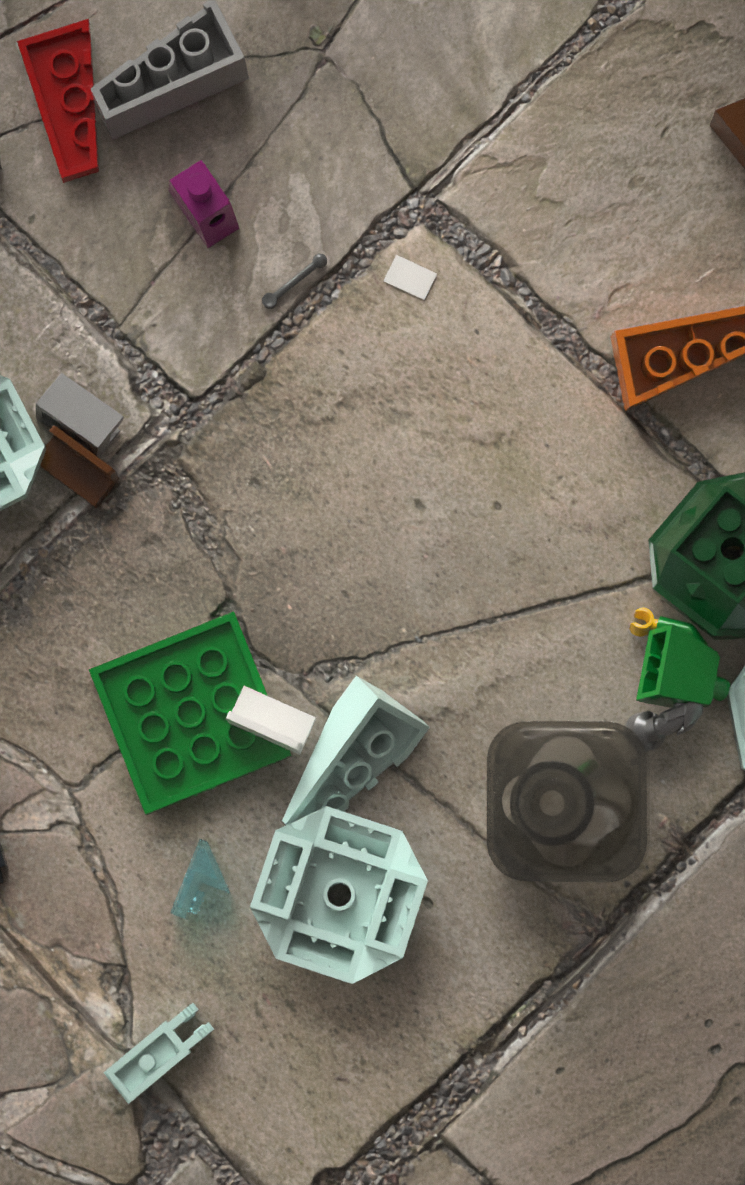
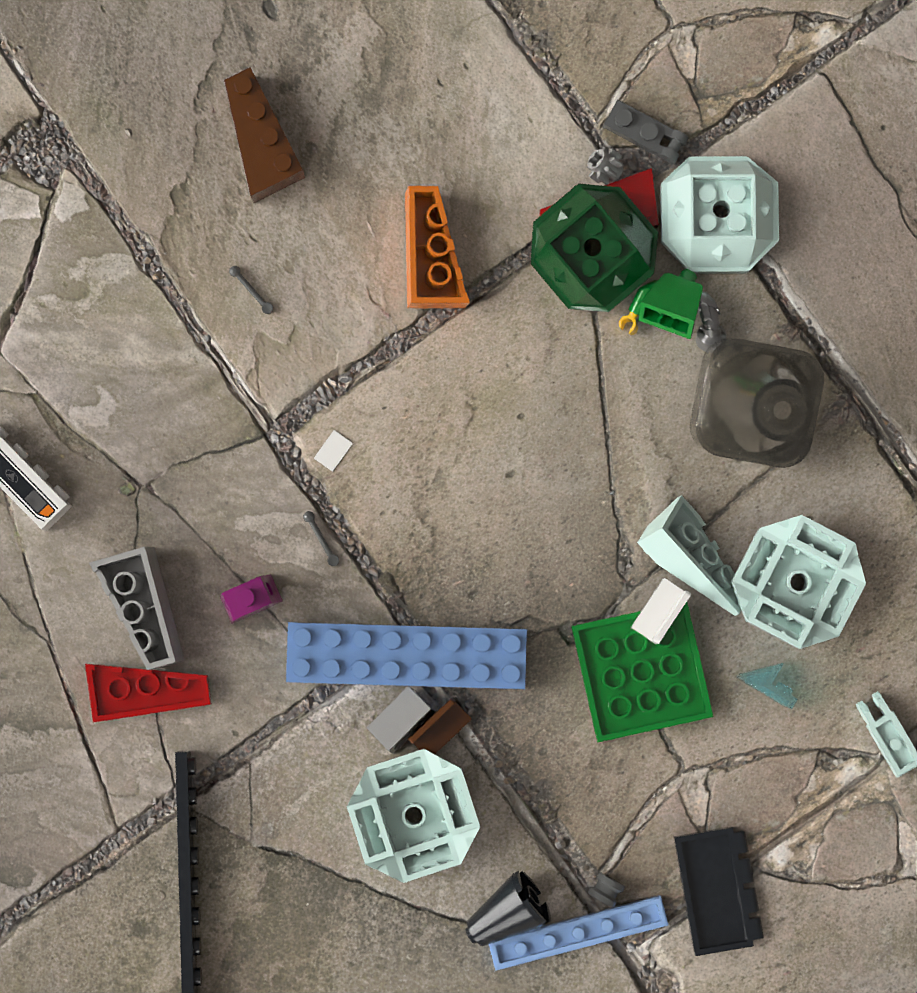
camera: 80 degrees left, 5 degrees up
(161, 409) = (406, 655): none -> medium blue brick
(578, 163) = (267, 307): none -> dark grey hinge

